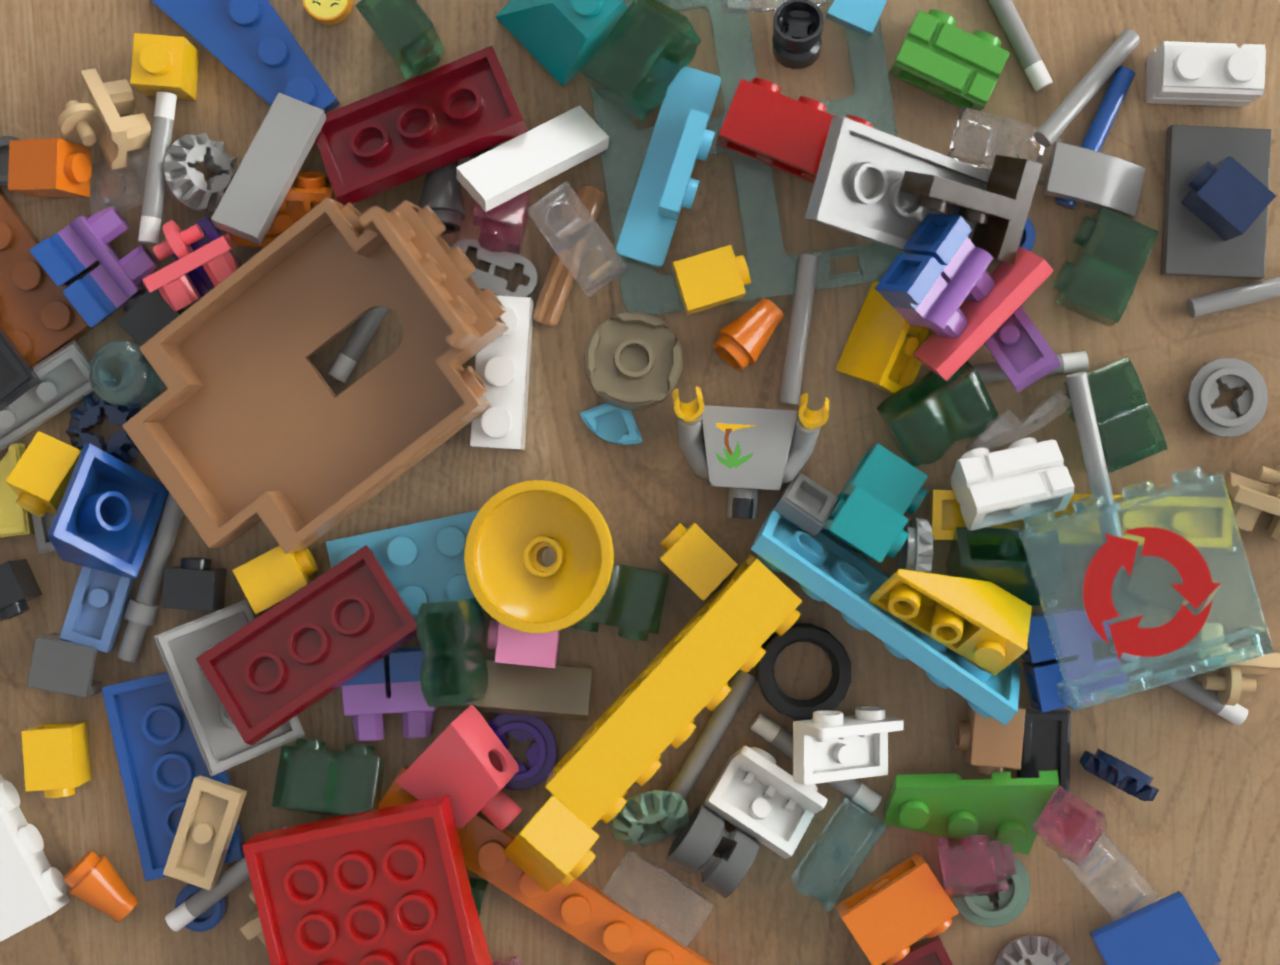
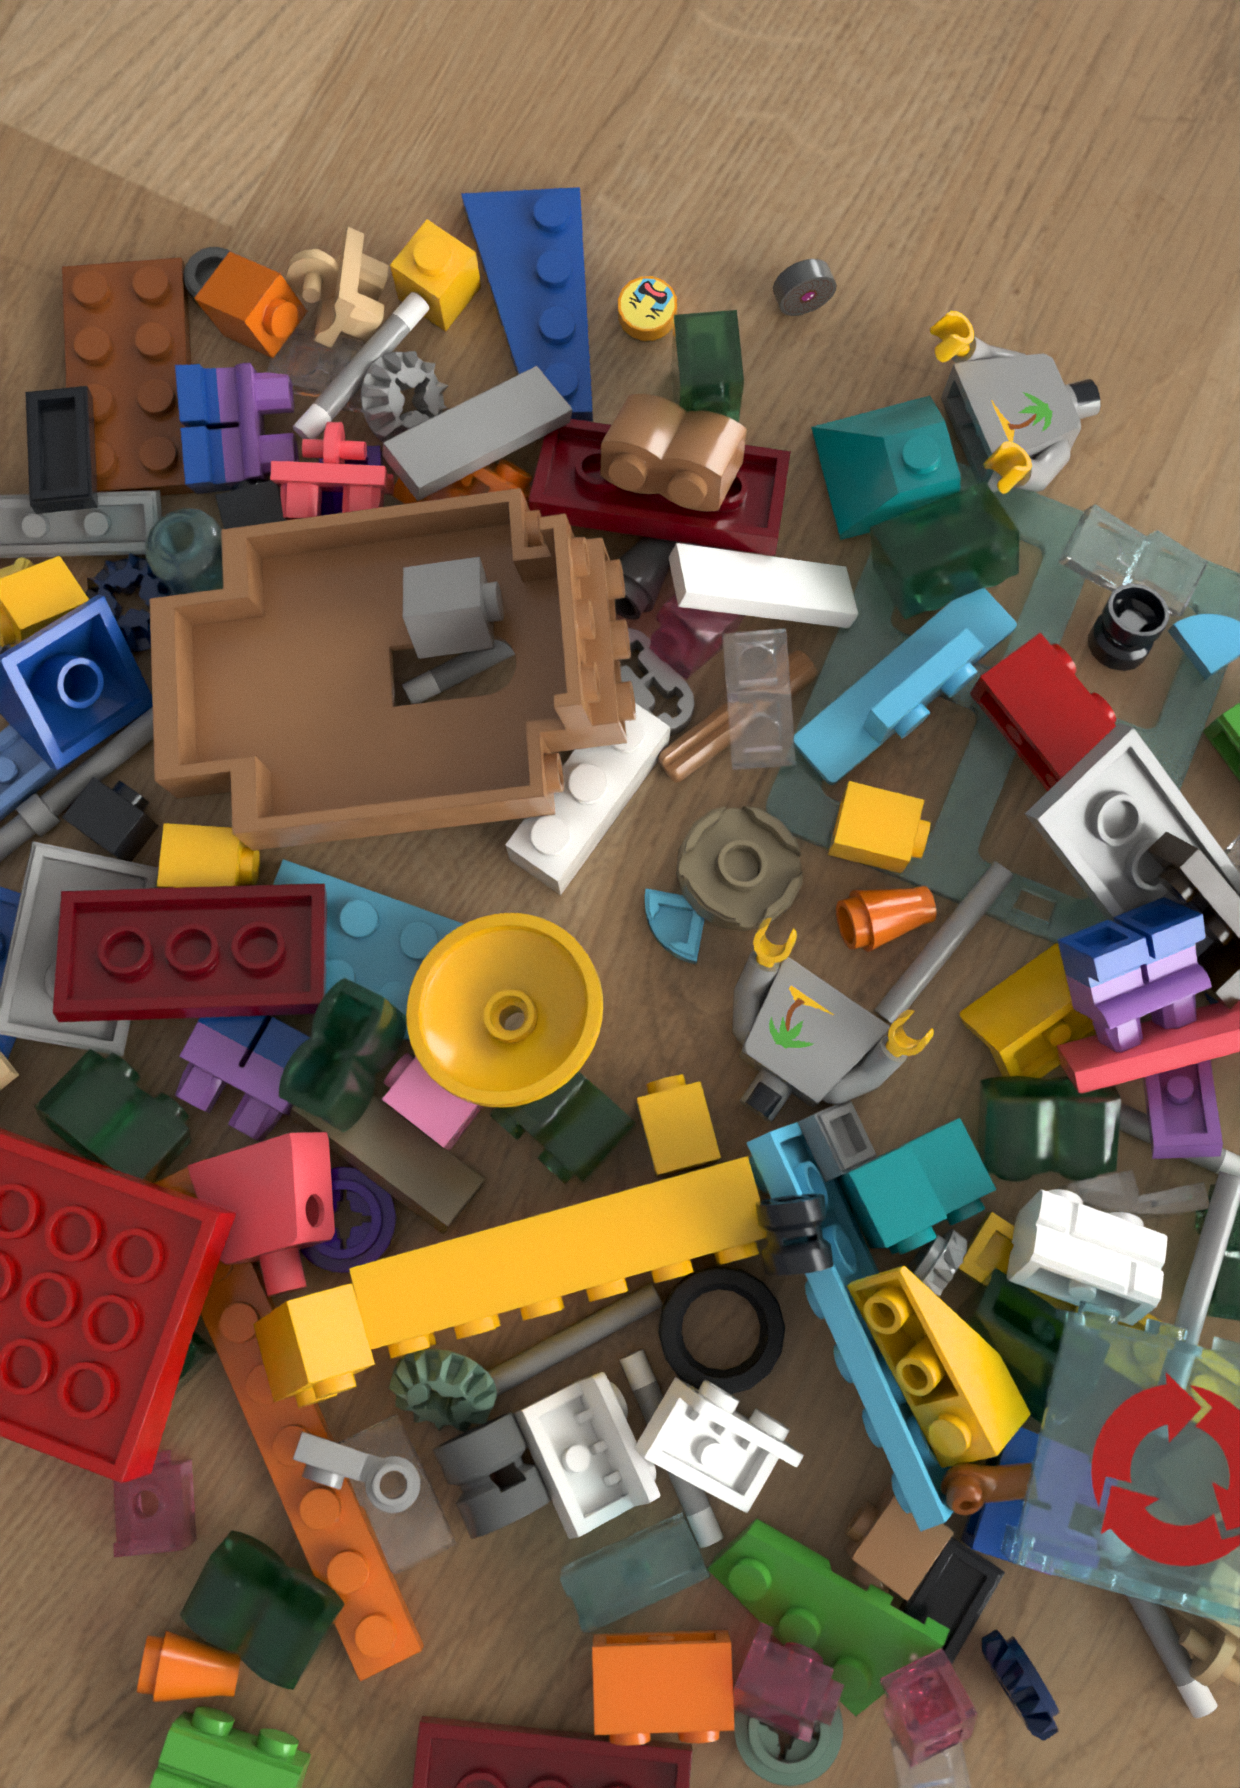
camera: 30 degrees right, 10 degrees down
(332, 309) = (450, 607): none -> light grey brick
(413, 101) = (673, 452): none -> medium nougat brick
(608, 906) = (332, 1462): none -> light grey plate
(817, 592) = (792, 1219): none -> black wheel
(1020, 675) = (972, 1485): none -> dark orange arm

